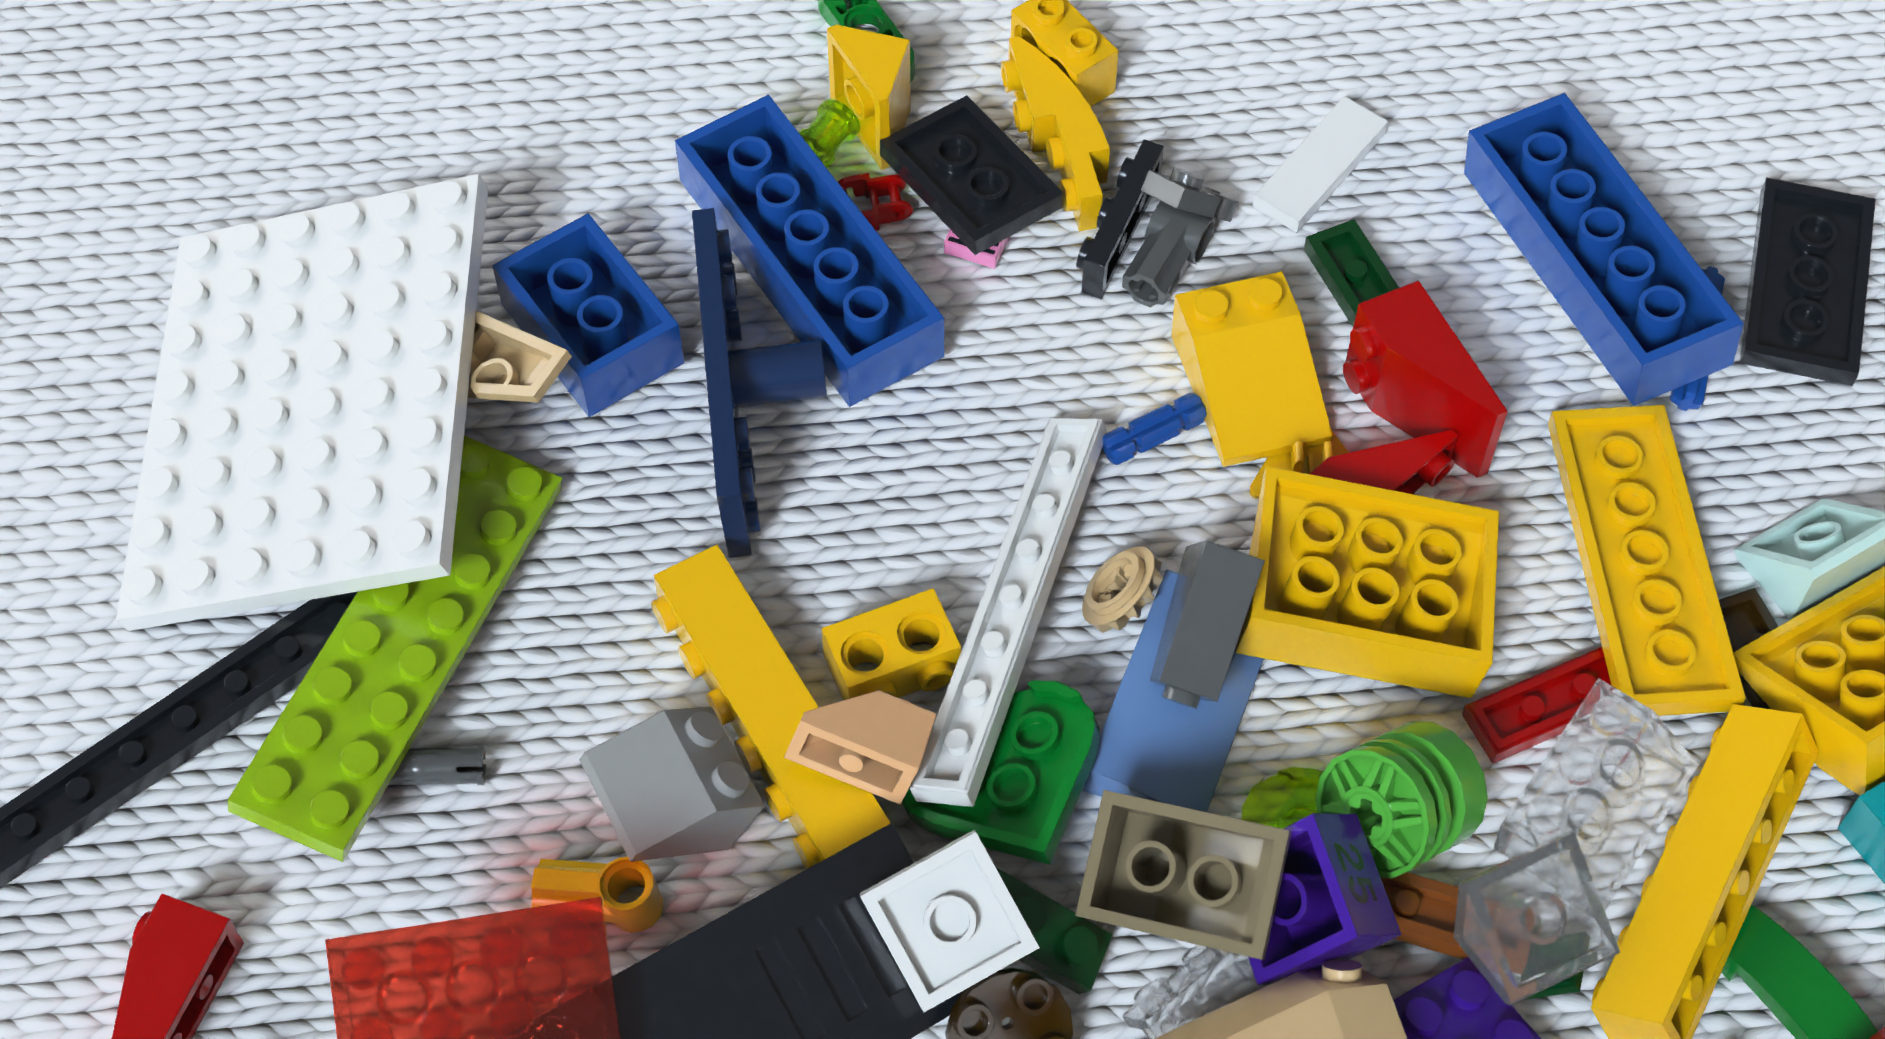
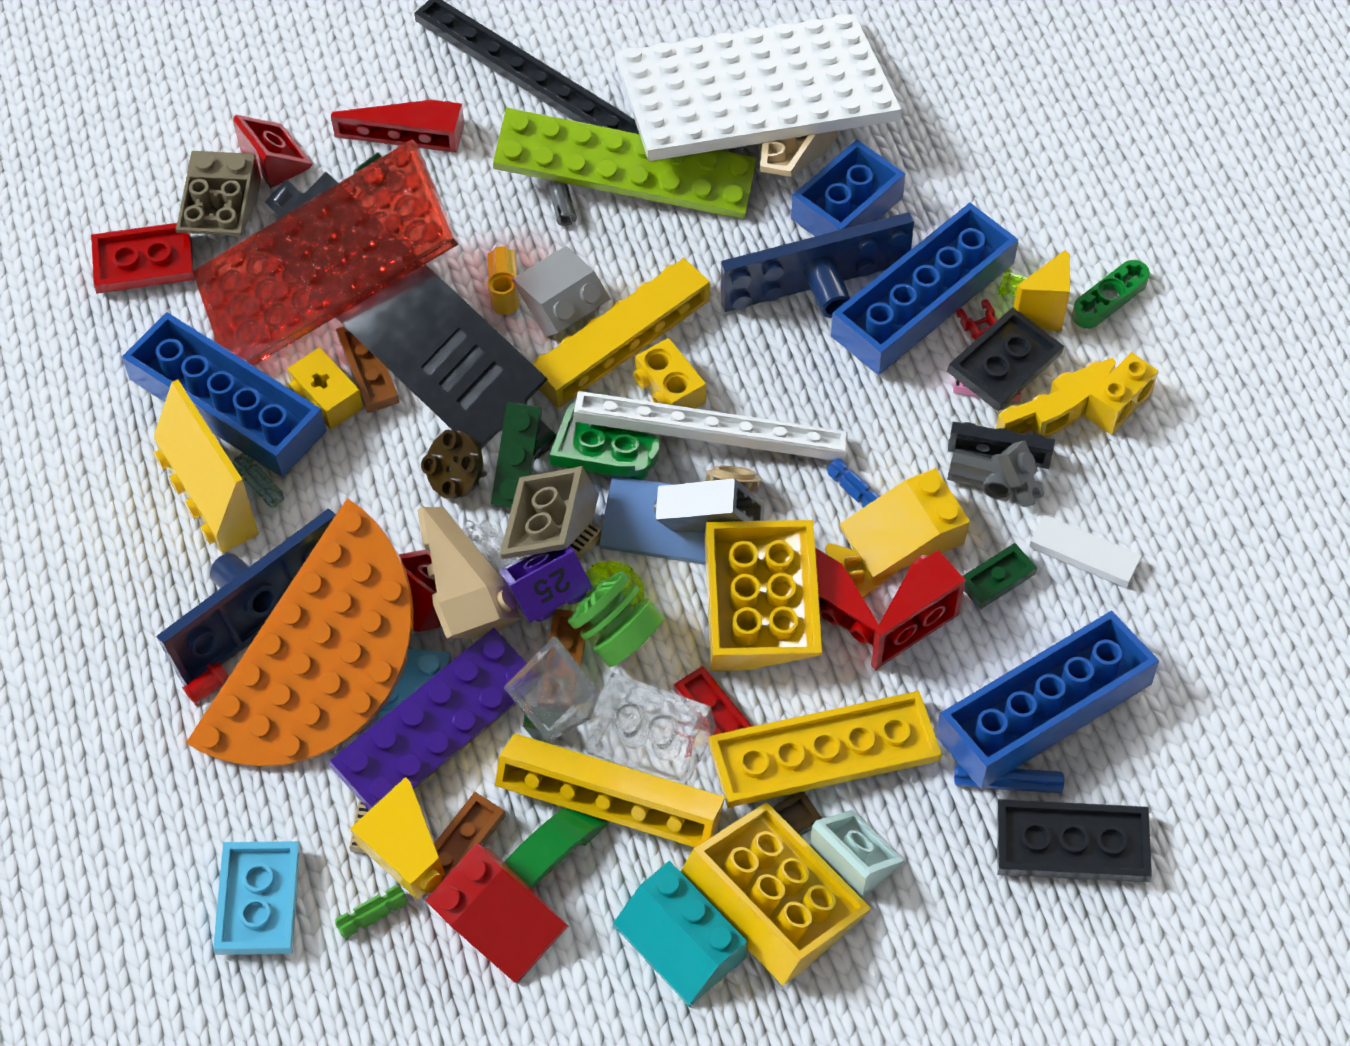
camera: 80 degrees right, 0 degrees up
(865, 742) = (597, 363): light nougat slope -> none
(949, 920) = (492, 408): white plate -> none

